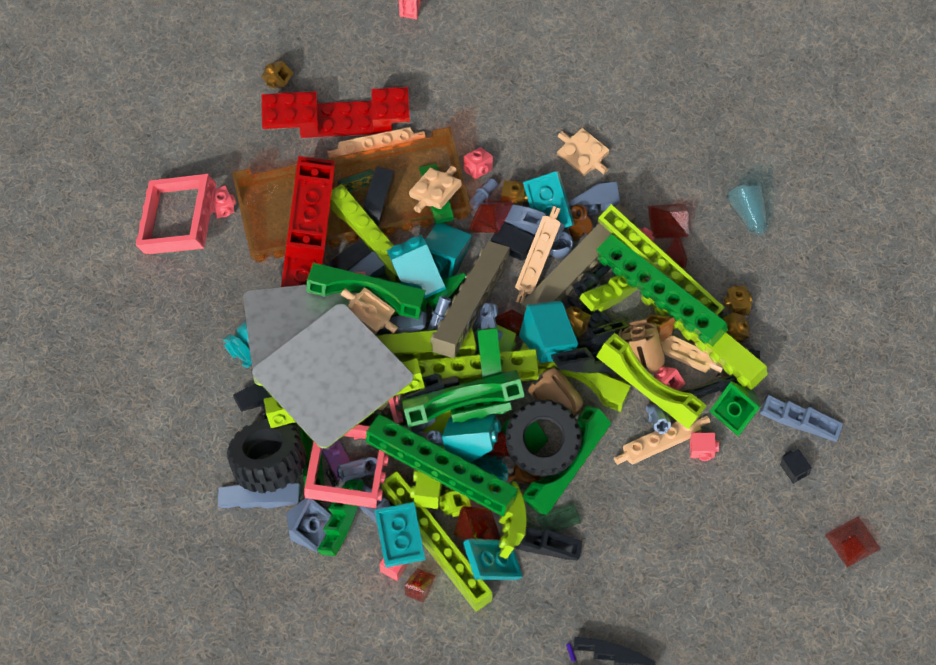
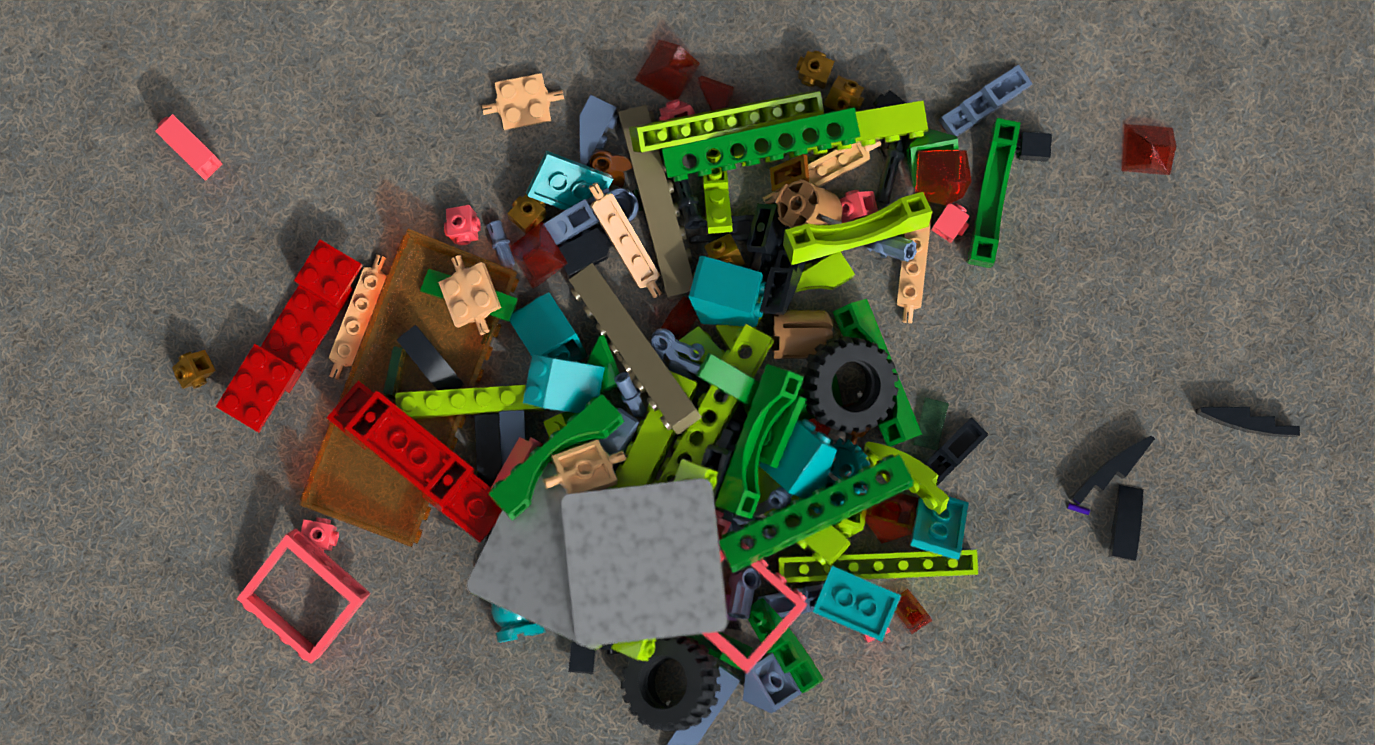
camera: 60 degrees left, 20 degrees up
(718, 469) = (992, 193): none -> green arch
(729, 417) = (943, 175): none -> clear red slope

